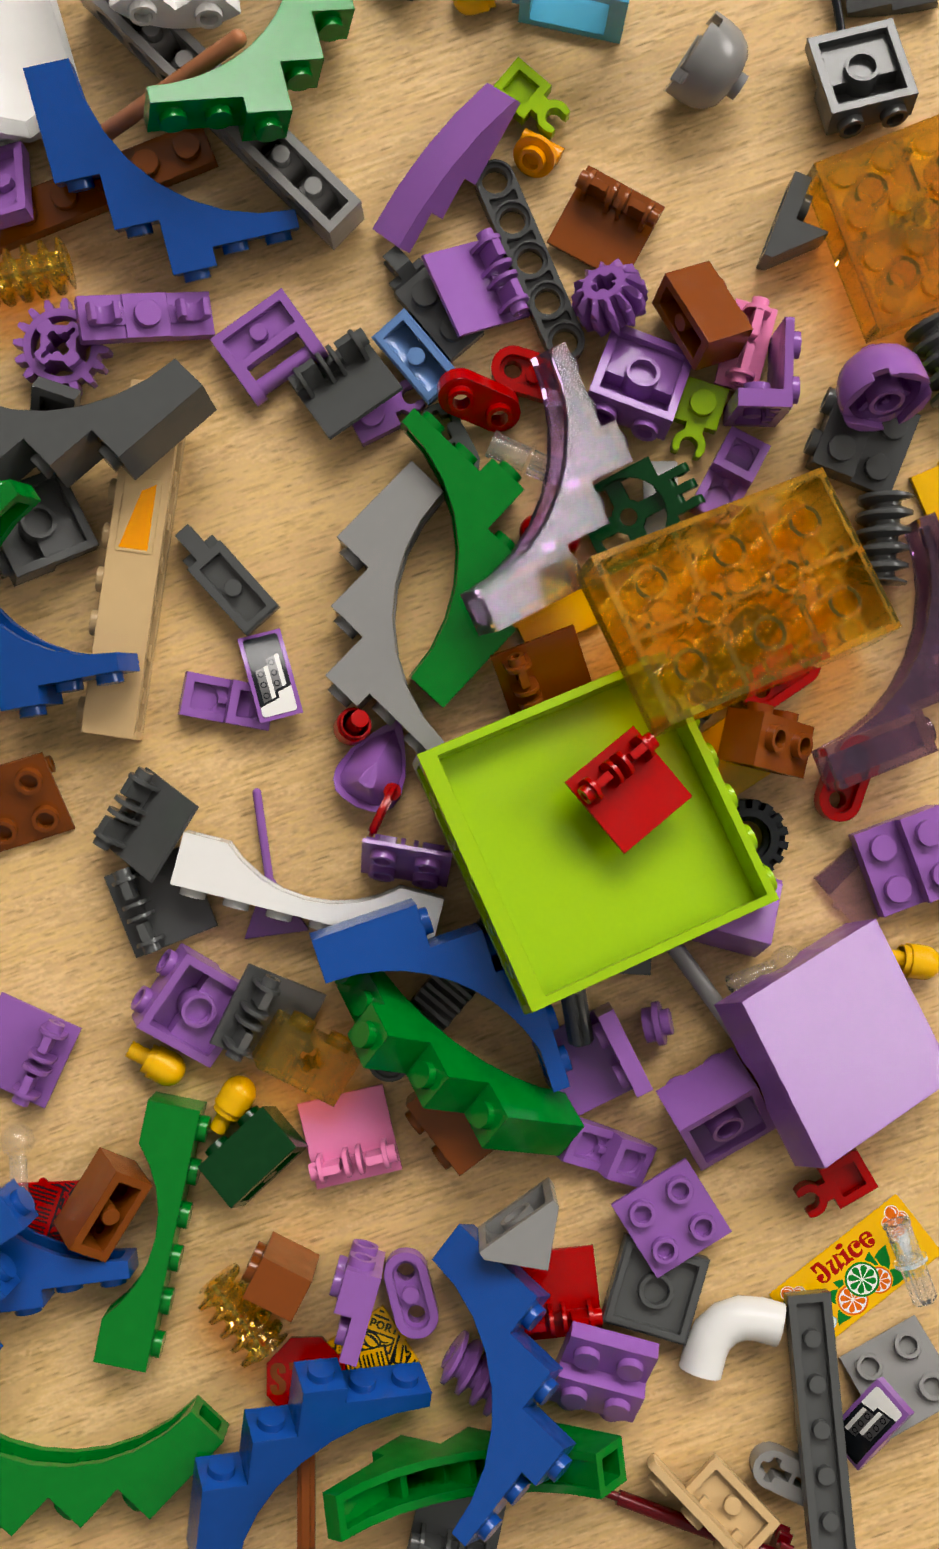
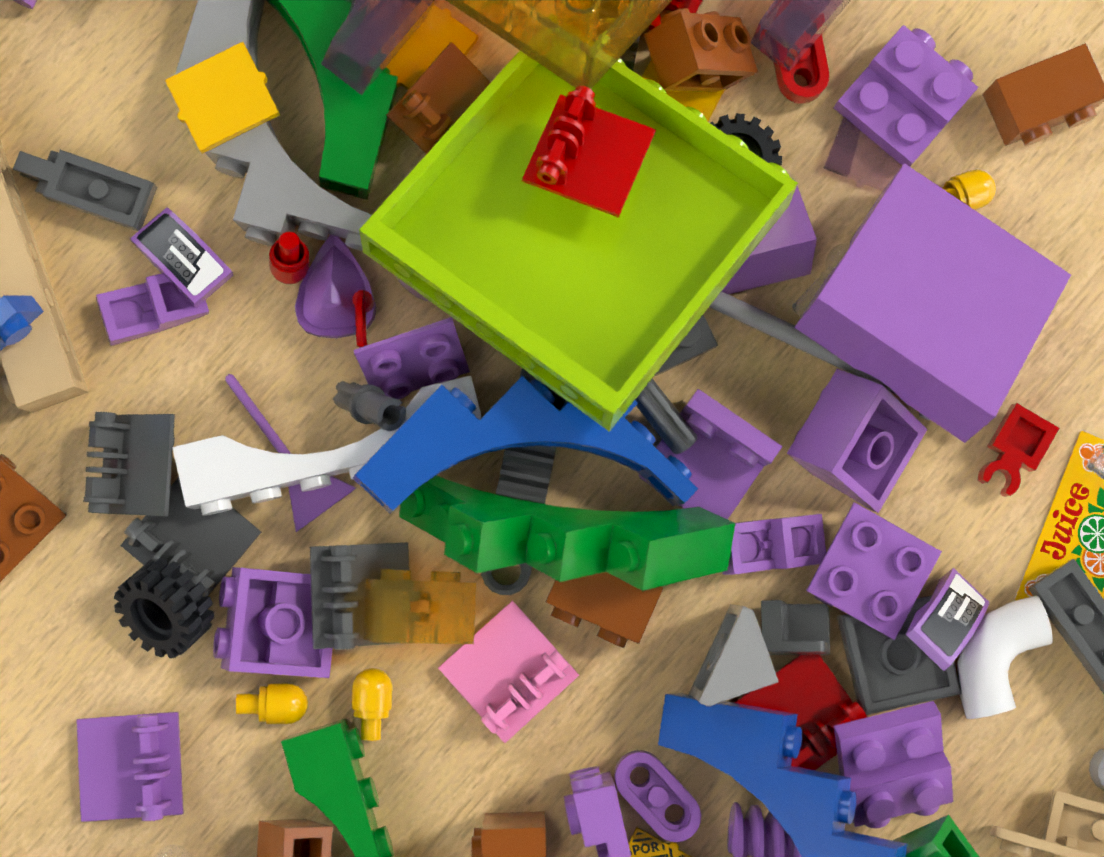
camera: 35 degrees left, 5 degrees down
(112, 949) = (164, 608): none -> black tyre
(251, 1155) = (418, 742): dark green brick -> none
(353, 879) = (370, 405): none -> dark grey axle
(368, 572) = (222, 97): none -> yellow piece
(586, 1227) = (795, 628): none -> dark grey panel
(657, 1023) = (751, 388): medium lavender plate -> none
(707, 1286) = (948, 619): none -> slope

